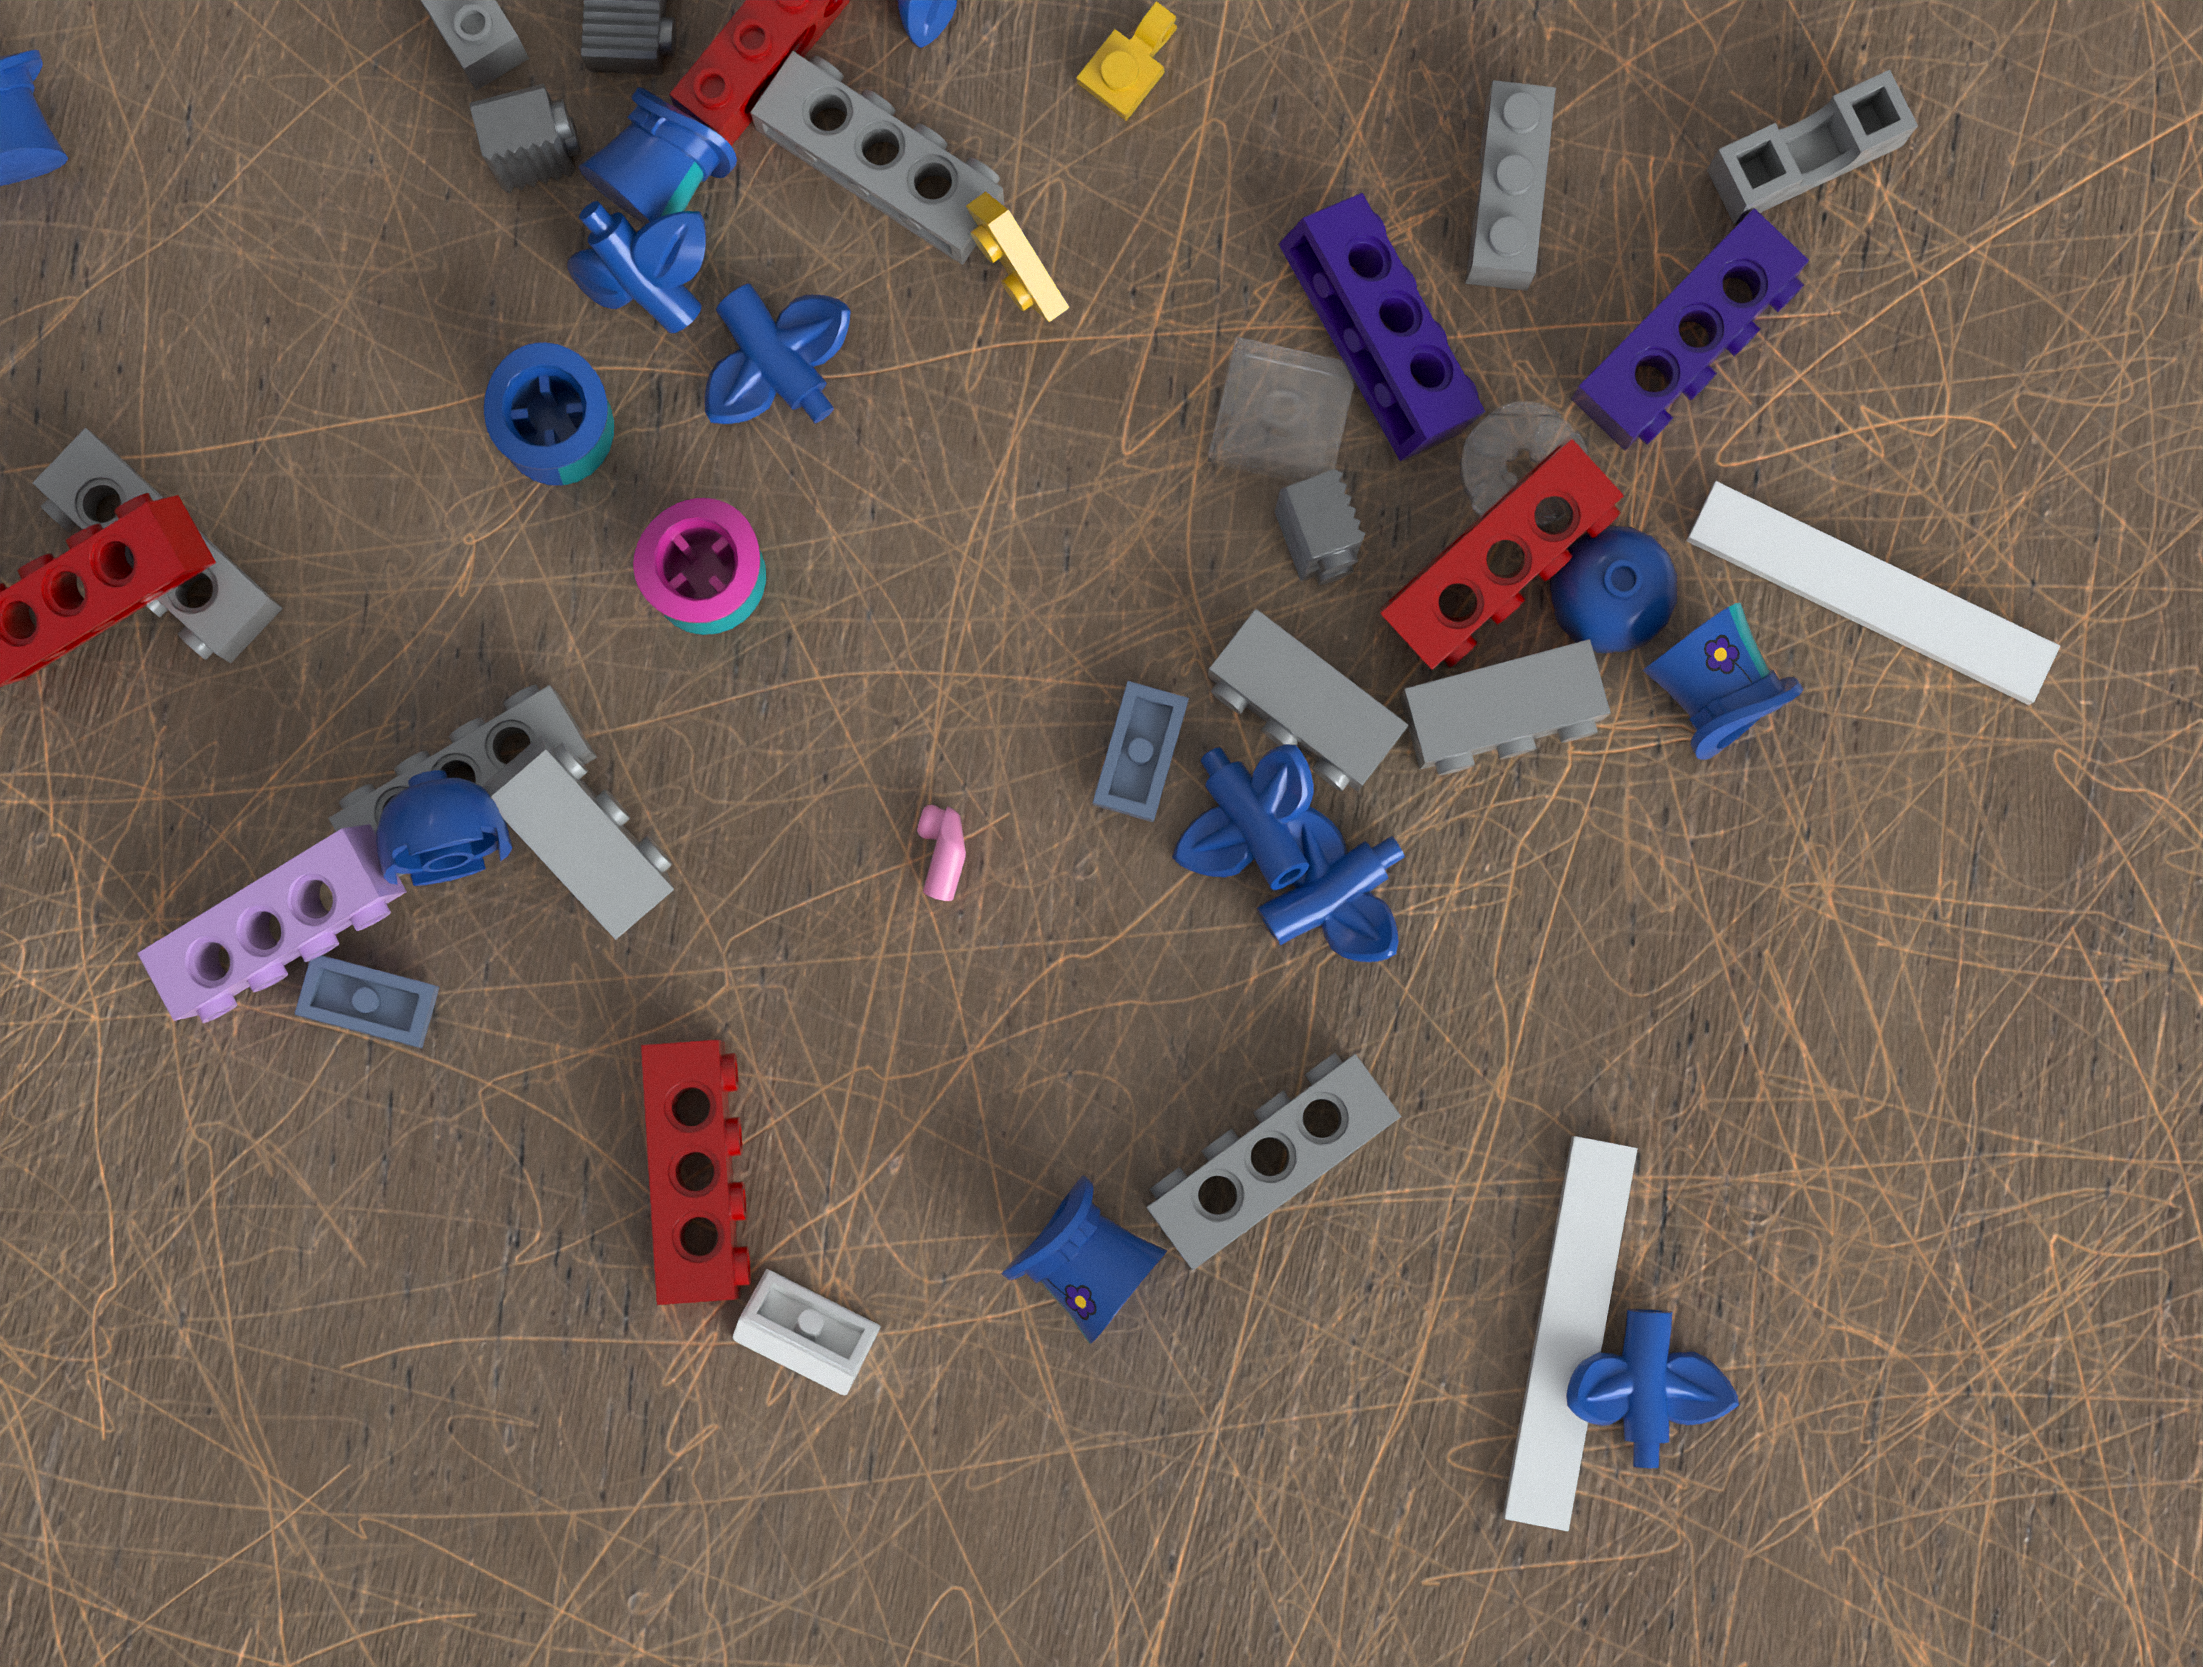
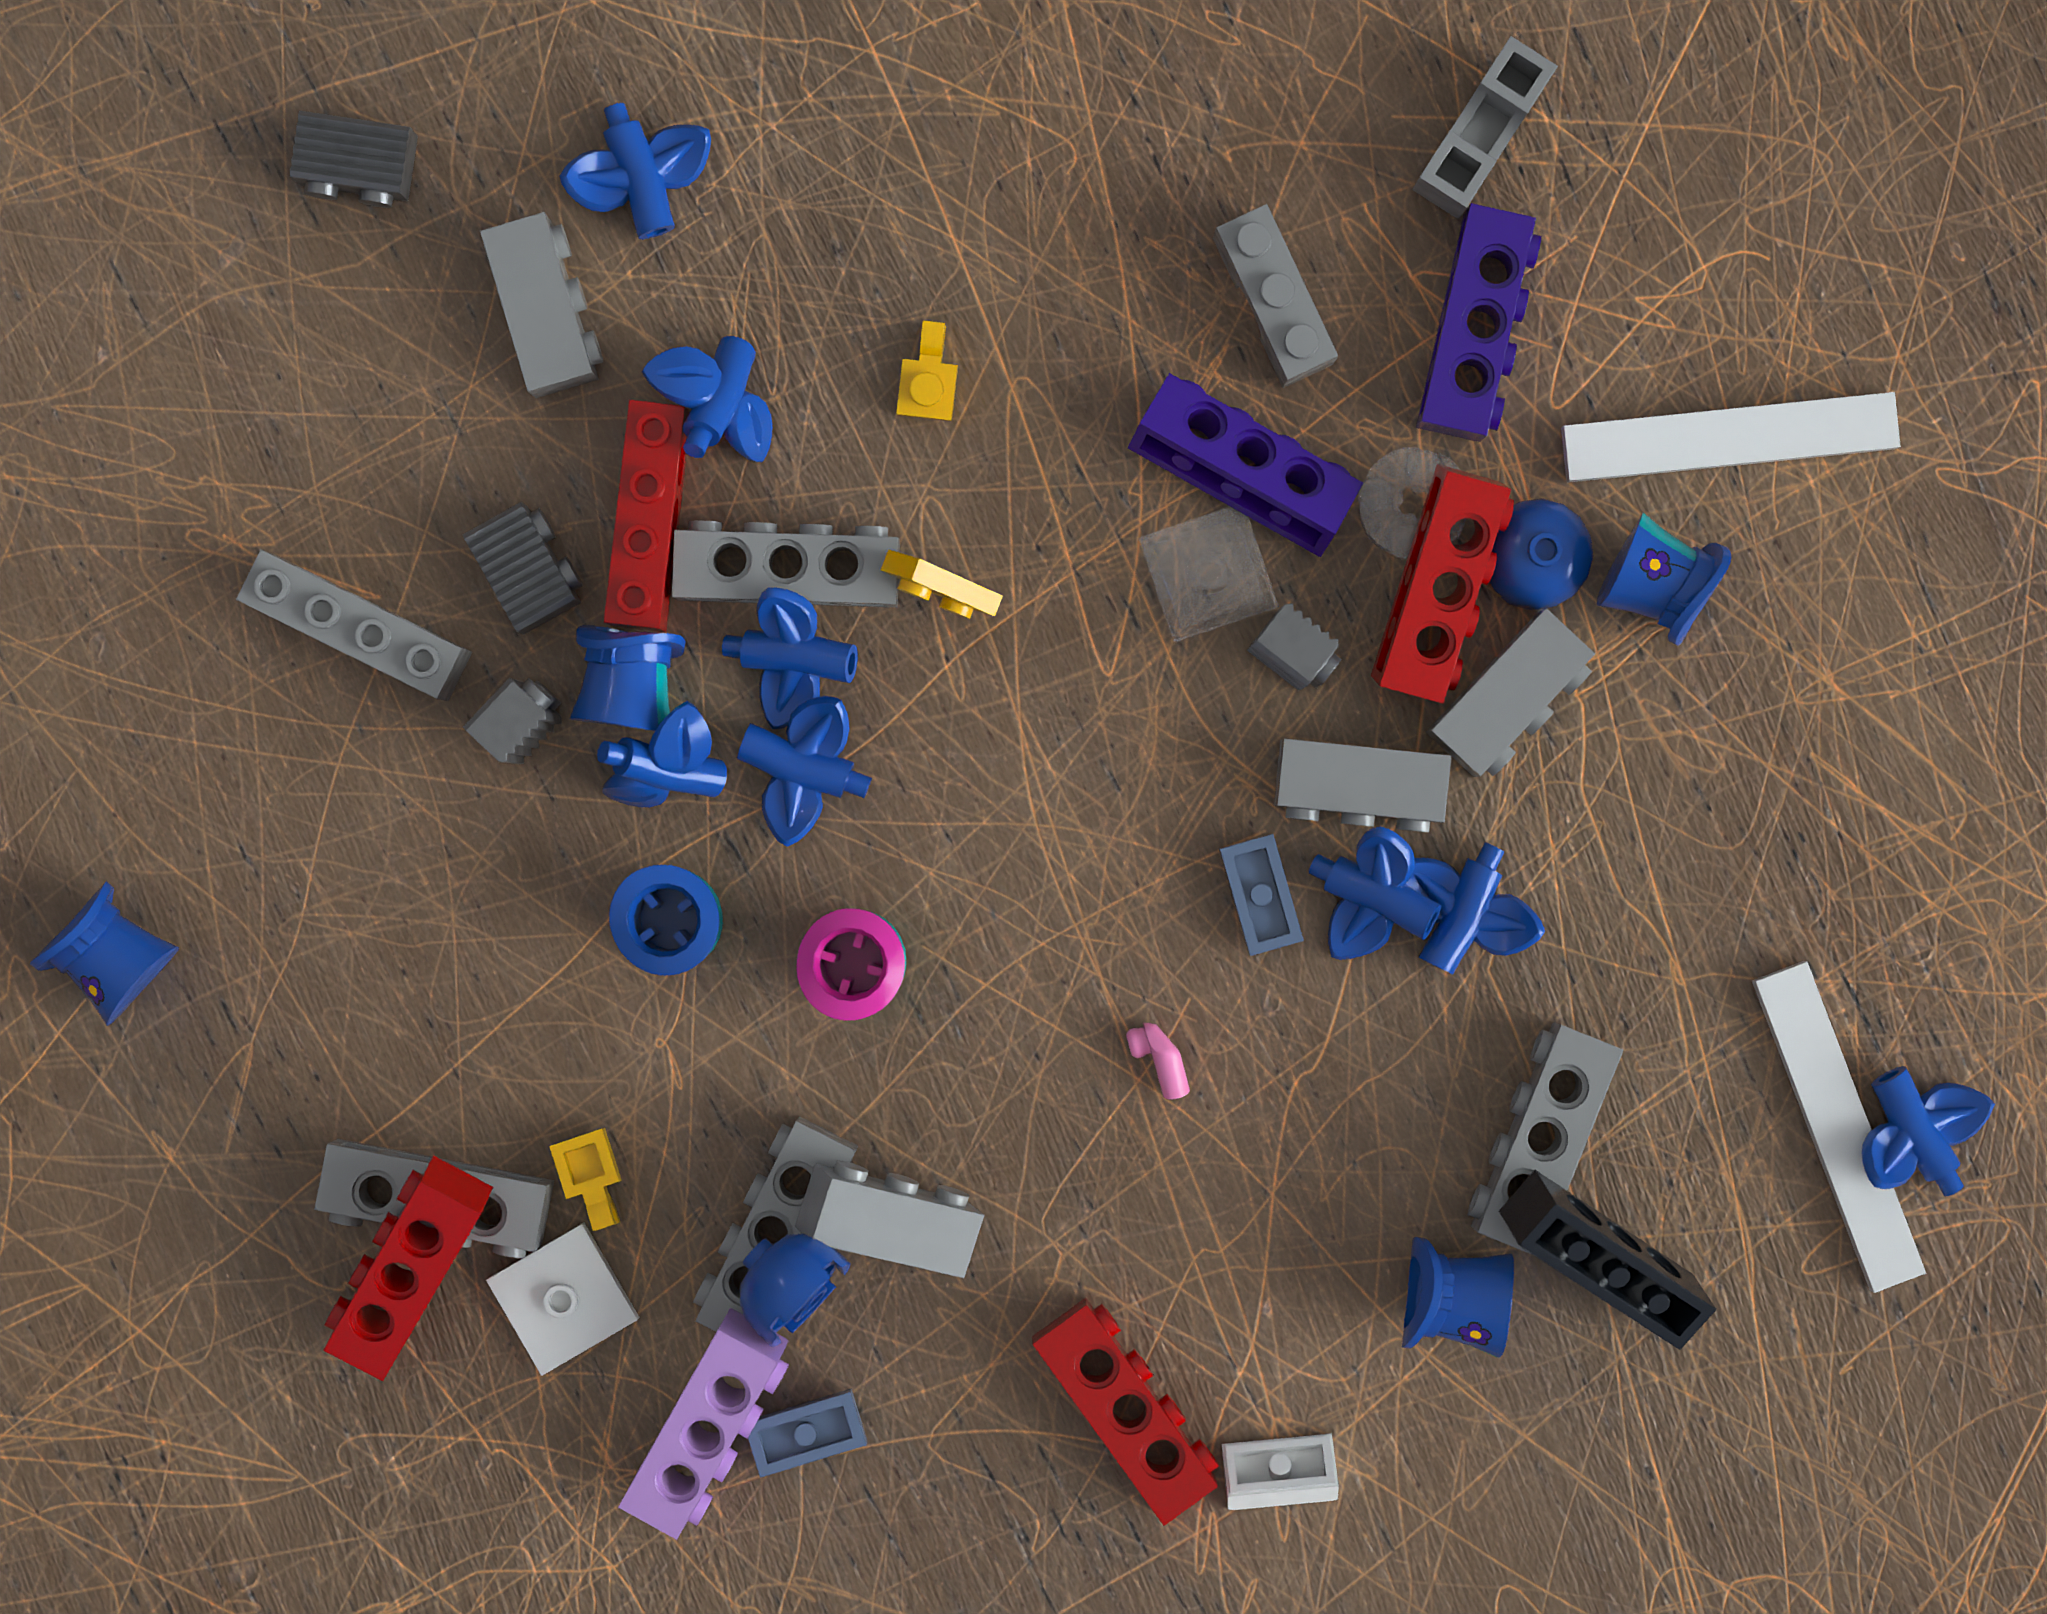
camera: 35 degrees left, 5 degrees up
(216, 725) = (562, 1299): none -> white plate
(319, 612) = (586, 1169): none -> yellow plate
(830, 238) = (789, 654): none -> blue plant
(1256, 1309) = (1607, 1260): none -> black brick

